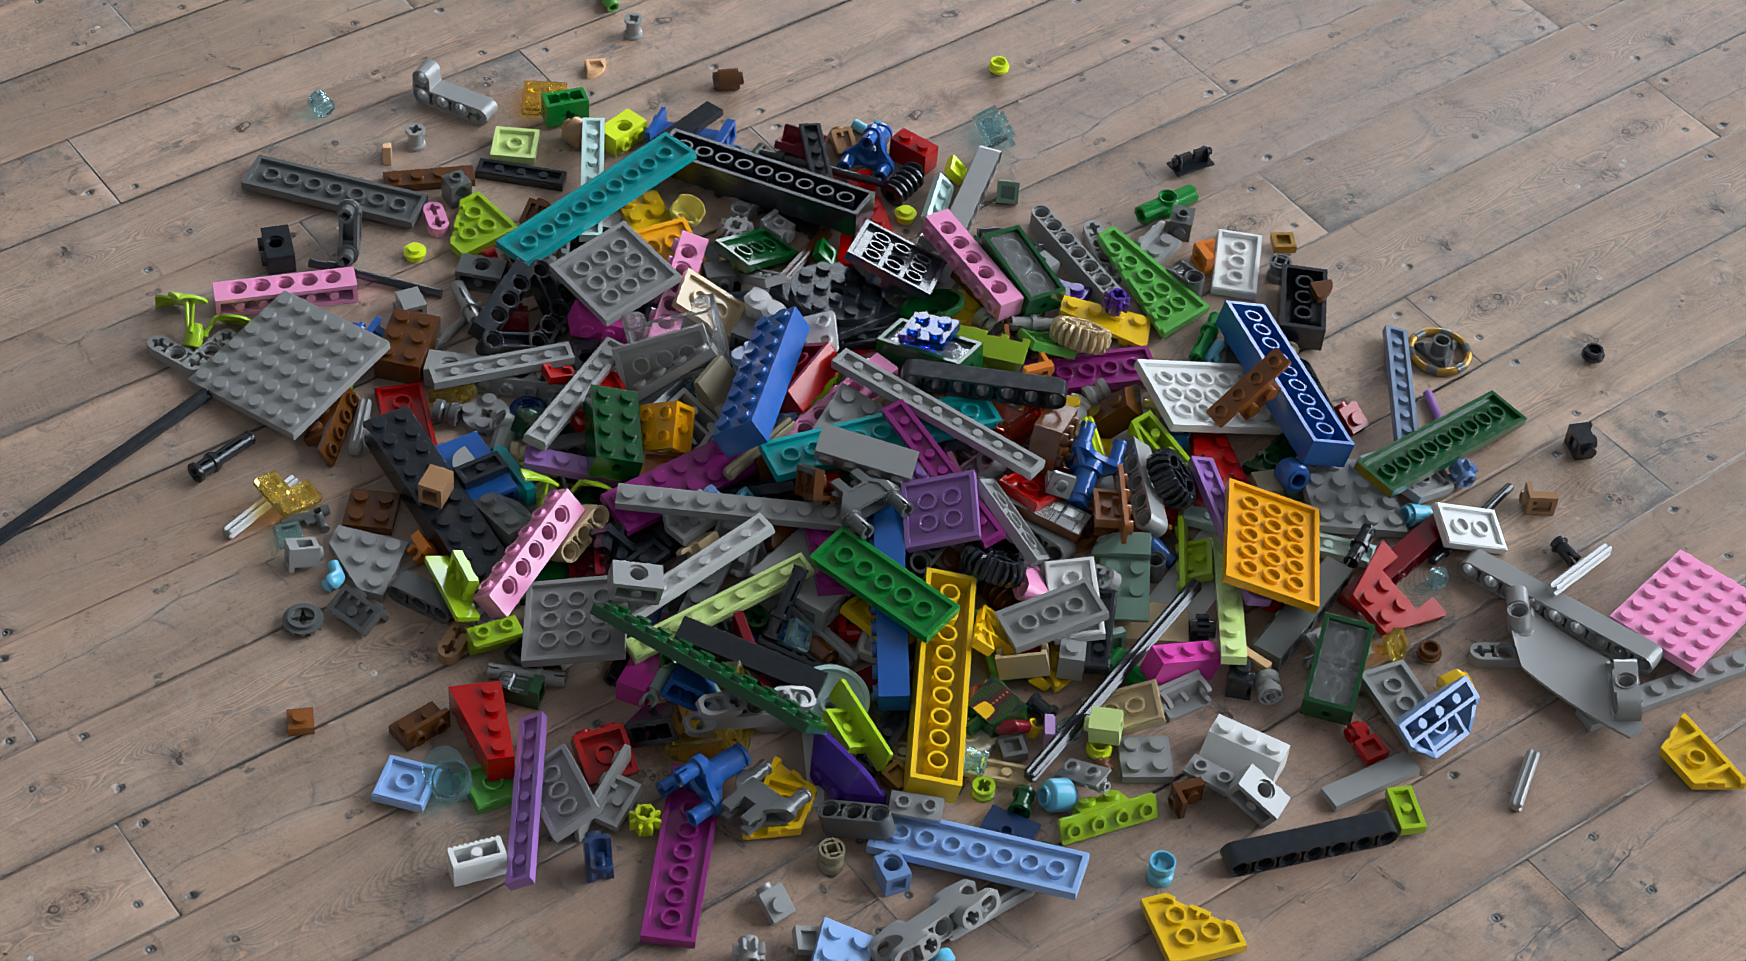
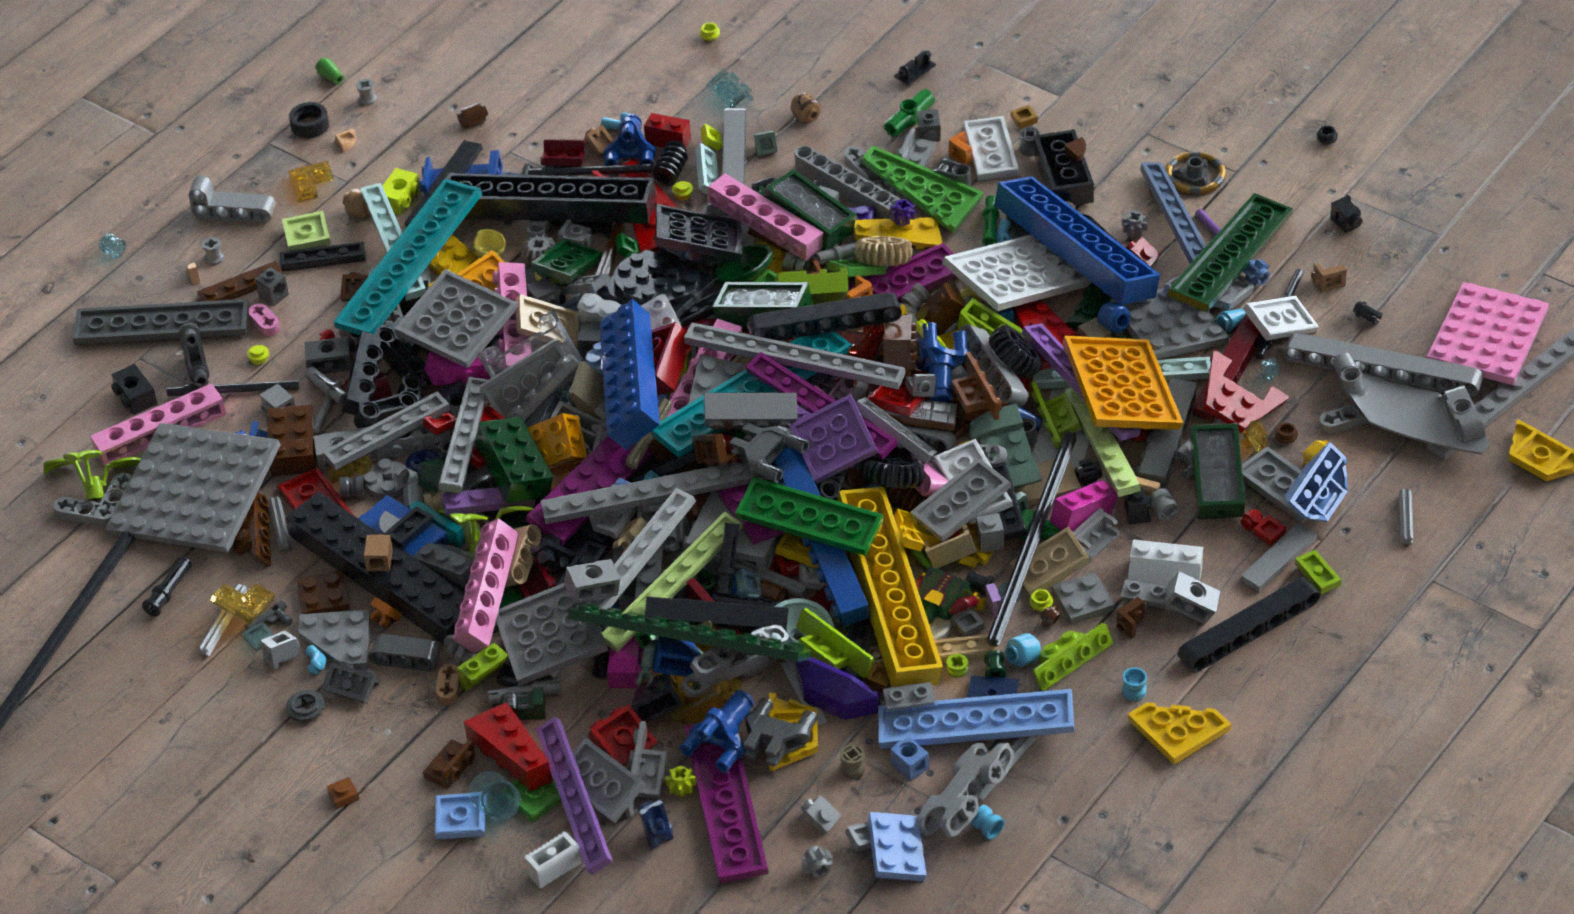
camera: 10 degrees left, 0 degrees up
(456, 583) = (432, 631): lime bracket -> none
(478, 225) = (307, 313): lime plate -> none
(564, 105) = (336, 182): green brick -> none
(566, 47) = (306, 110): none -> black tyre
(815, 149) = (580, 155): black tile -> none
(856, 819) = (862, 723): dark grey beam -> none
(929, 331) = (757, 286): clear blue plate -> none
(976, 760) = (944, 641): clear light blue wheel -> none
(1063, 168) = (805, 107): none -> medium nougat head
(1085, 774) = (1041, 624): light grey hinge -> none
(1104, 725) = (1040, 579): yellowish green brick -> none
(1251, 390) = (1054, 255): dark orange bracket -> none
(1354, 385) = (1134, 224): none -> light grey gear
(1359, 545) = (1194, 361): black pin -> none
(1579, 569) = (1386, 325): axle -> none

